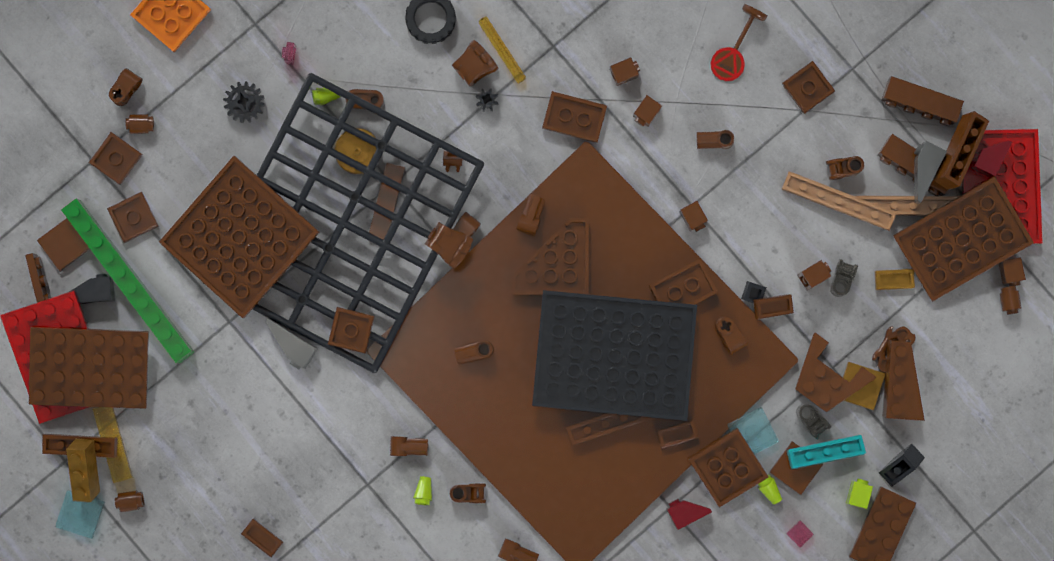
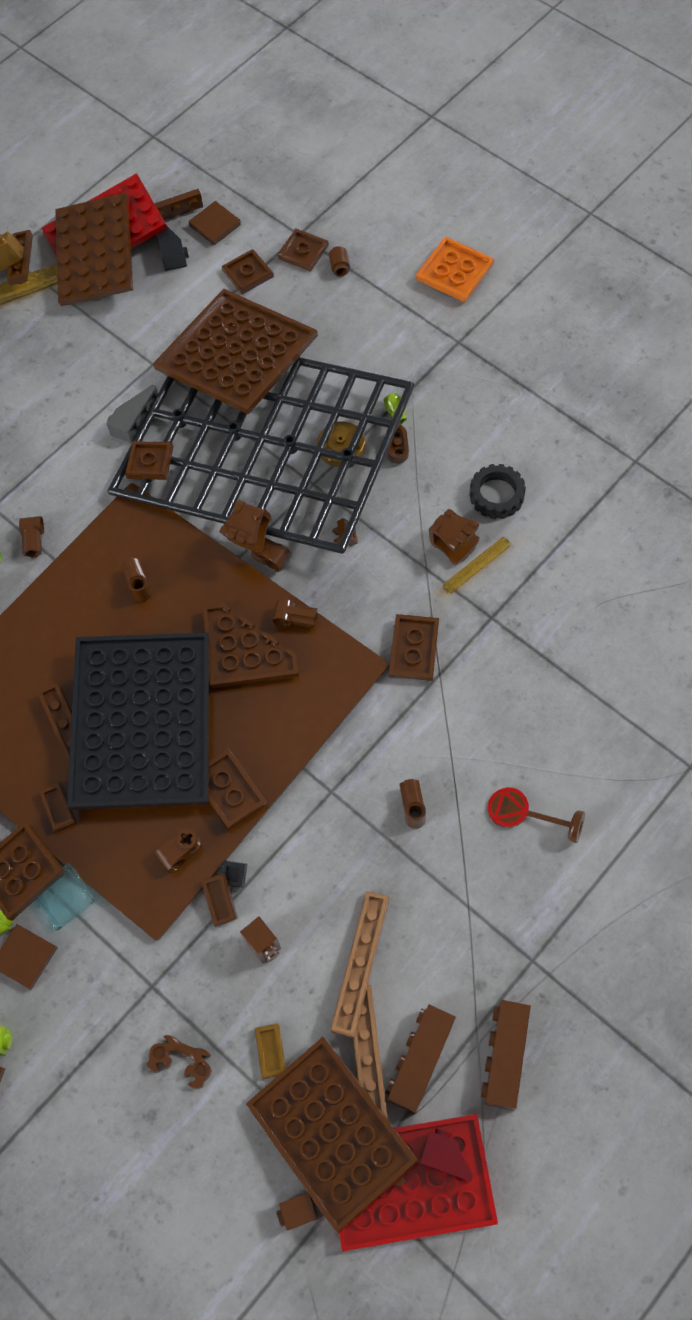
camera: 85 degrees right, 20 degrees down
(127, 85) = (373, 244): reddish brown piece -> none
(127, 280) = (181, 273): green brick -> none
(252, 100) = (375, 340): black gear -> none
(288, 53) = (433, 370): clear pink plate -> none
(386, 198) = (320, 481): reddish brown tile -> none
(489, 105) = (417, 550): black gear -> none
(624, 71) = (476, 691): reddish brown brick -> none
(646, 111) = (433, 722): reddish brown brick -> none
(694, 216) = (317, 791): reddish brown brick -> none
(808, 87) = (498, 908): reddish brown tile -> none
(813, 421) = (80, 968): clear smoke piece -> none
(823, 384) = (129, 973): reddish brown wing -> none
(826, 452) = (42, 988): teal plate -> none
(843, 167) = (403, 961): reddish brown piece -> none
(843, 274) = (265, 981): clear smoke piece -> none
(868, 394) = (130, 1024): pearl gold tile -> none
(901, 384) = (126, 1075): reddish brown wedge -> none
(902, 465) = (31, 1092): black slope -> none
(925, 167) = (418, 1064): dark grey slope -> none
(961, 150) = (447, 1109): reddish brown brick -> none
(1010, 300) = (258, 1215): reddish brown brick -> none

